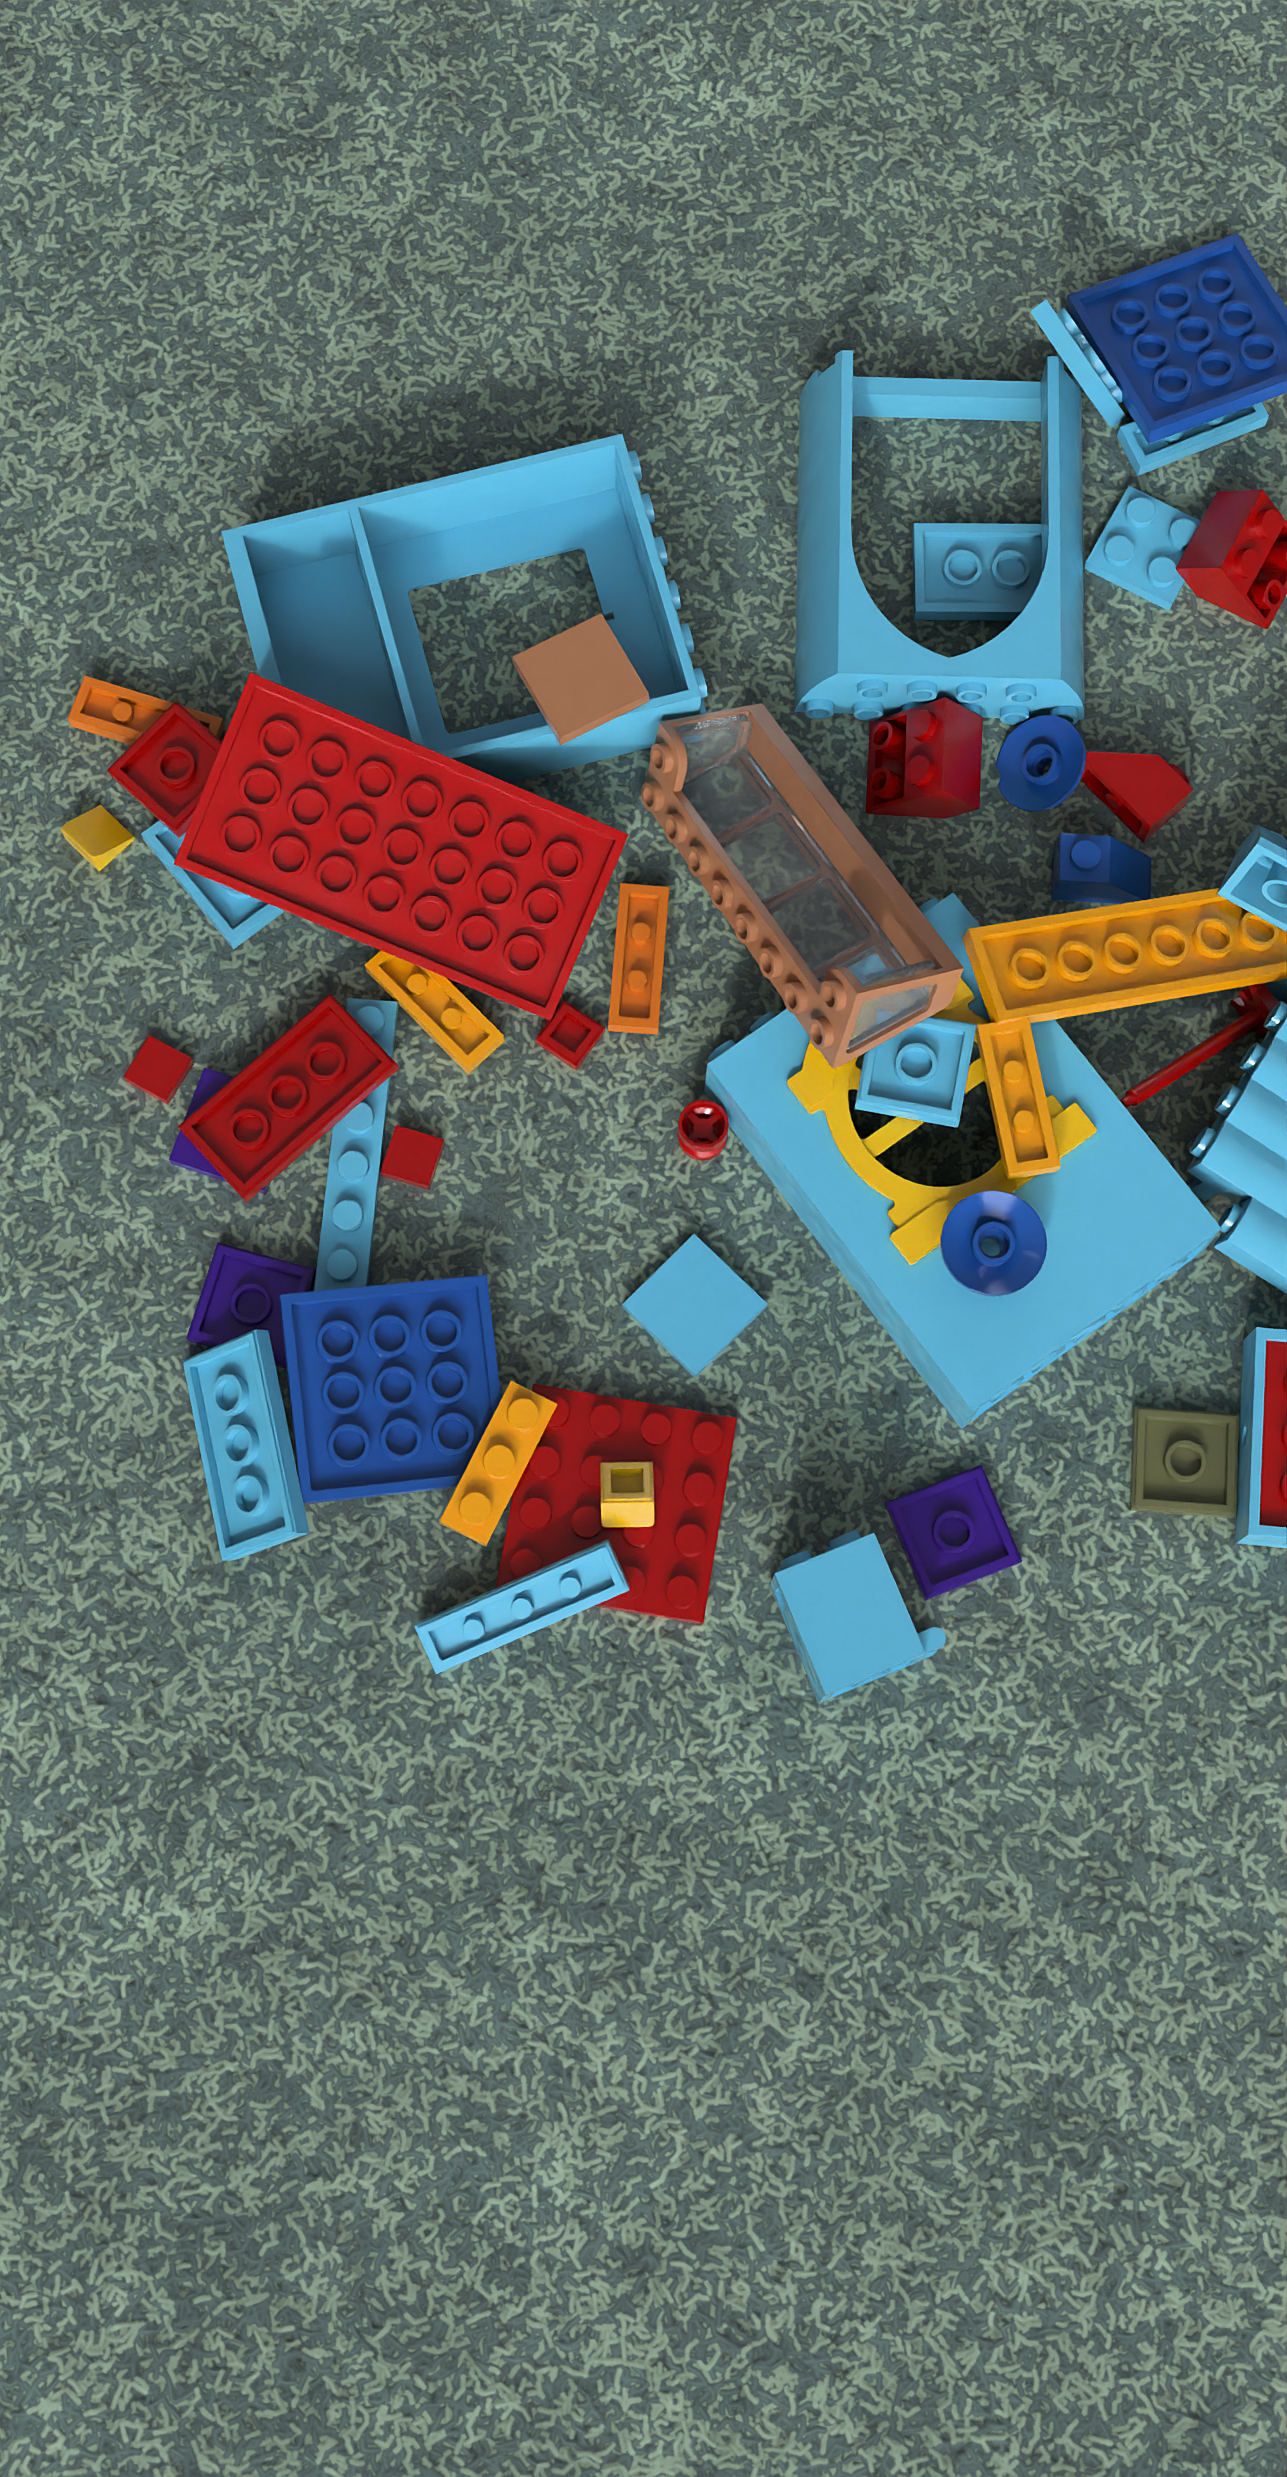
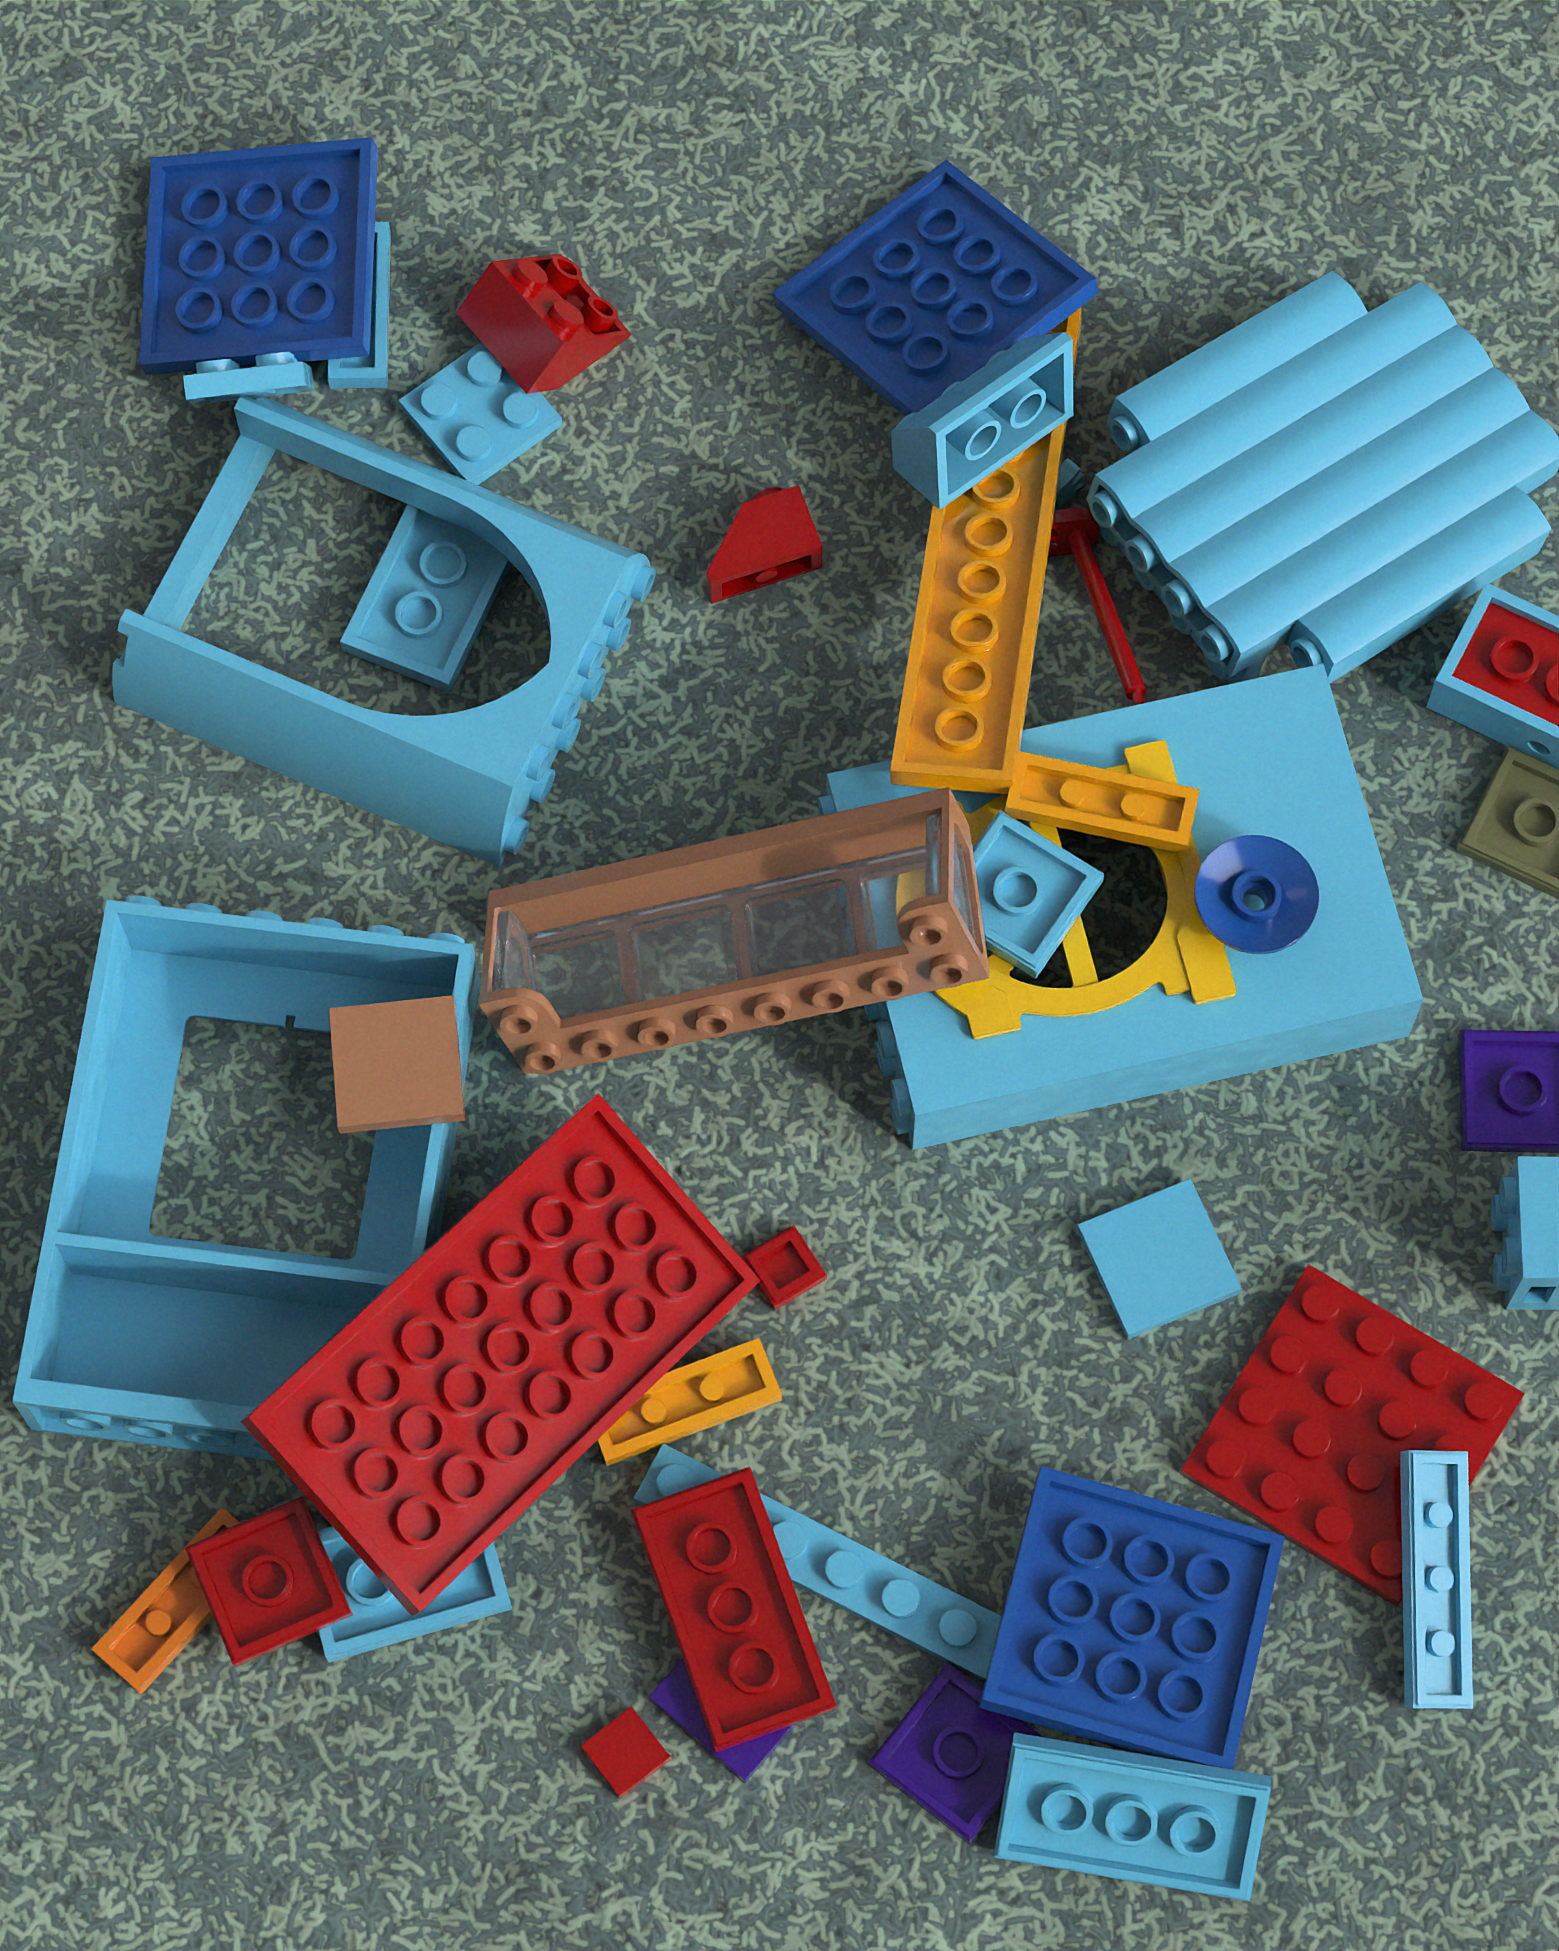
camera: 65 degrees left, 5 degrees down
(97, 836) = (299, 1715): yellow slope -> none
(412, 1157) = (856, 1500): red tile -> none
(498, 1463) = (1266, 1539): light orange plate -> none
(627, 1494) = (1354, 1412): yellow slope -> none
(638, 959) = (728, 1154): orange plate -> none
(703, 1121) = (963, 1152): red wheel -> none
(925, 762) = (632, 752): red slope -> none
(1026, 755) = (667, 645): blue dish -> none
(1099, 870) = (841, 626): blue slope -> none

